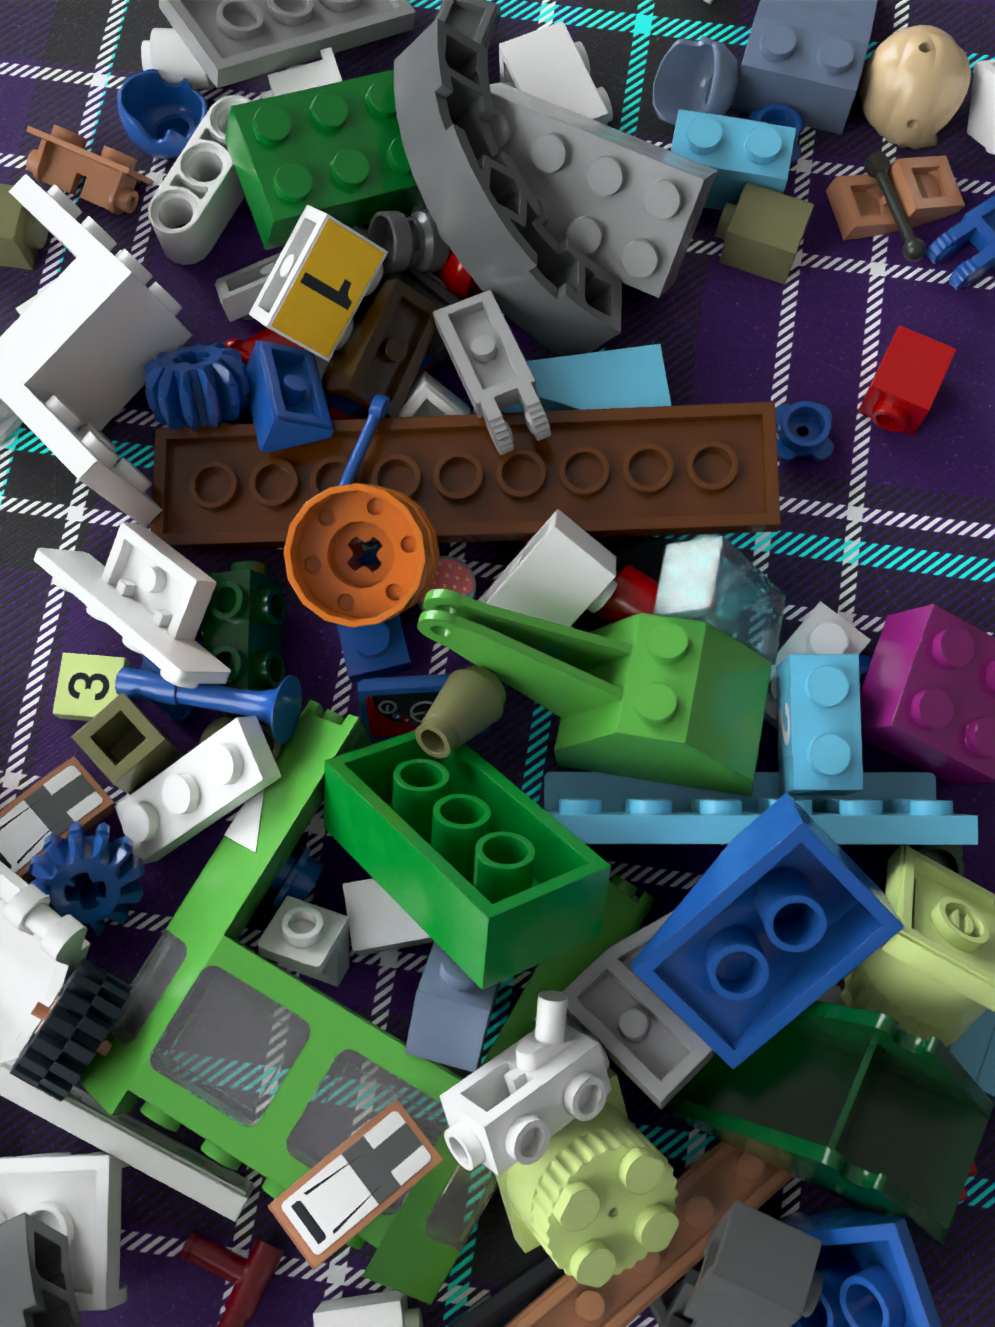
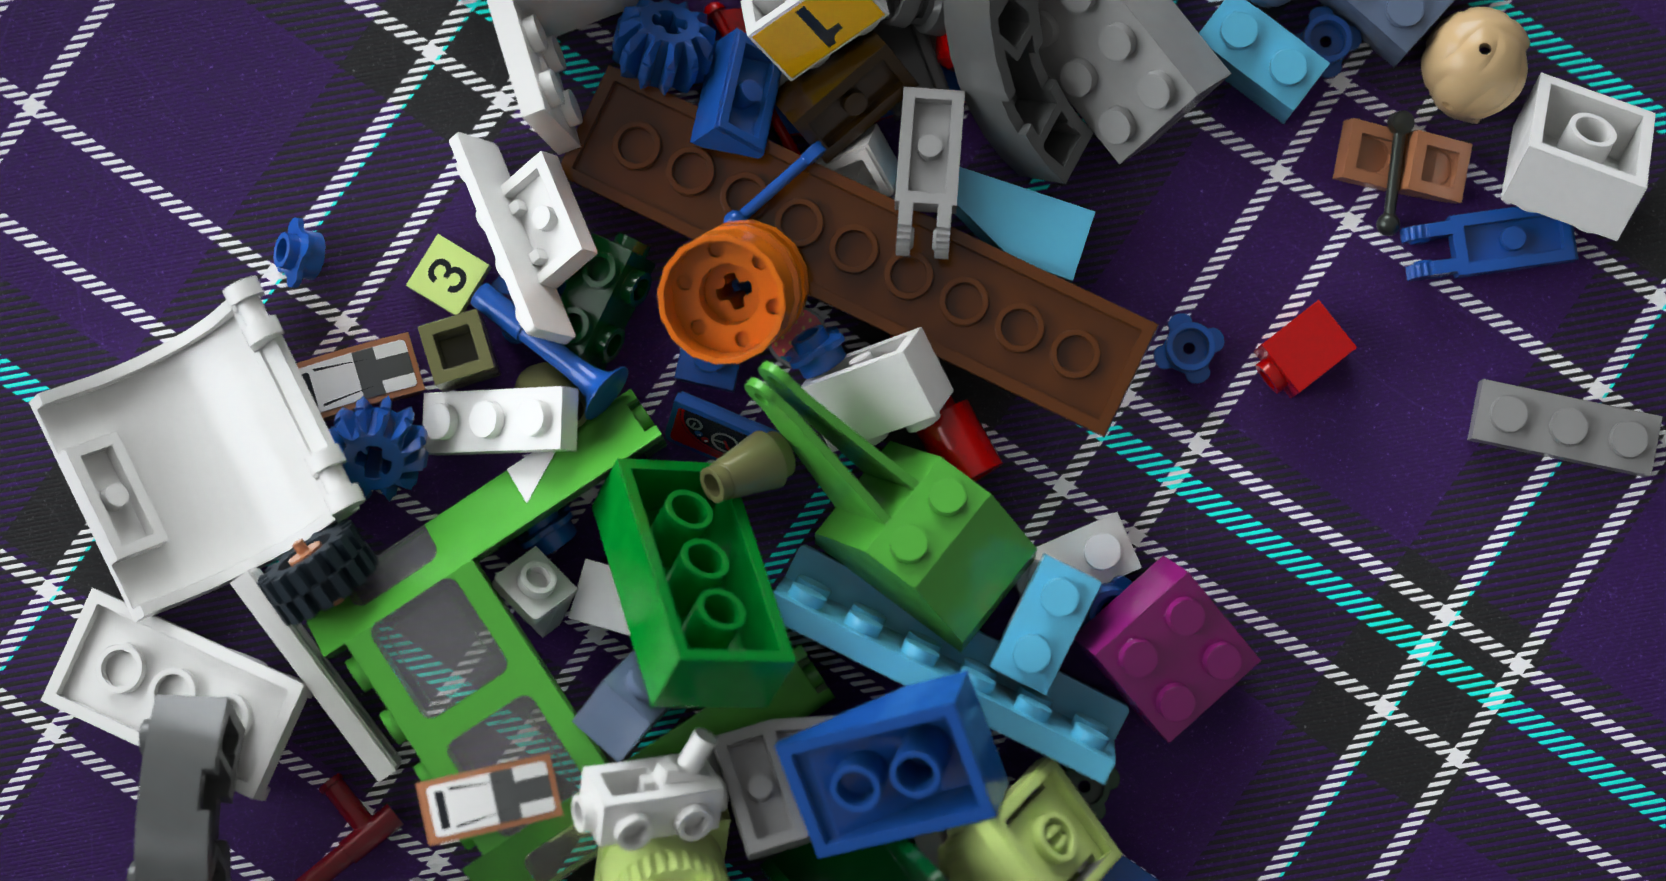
camera: 20 degrees right, 10 degrees up
(472, 578) = (816, 351): none -> blue plate
(720, 586) = (1023, 473): clear light blue brick -> none
(763, 232) = (1255, 140): olive brick -> none

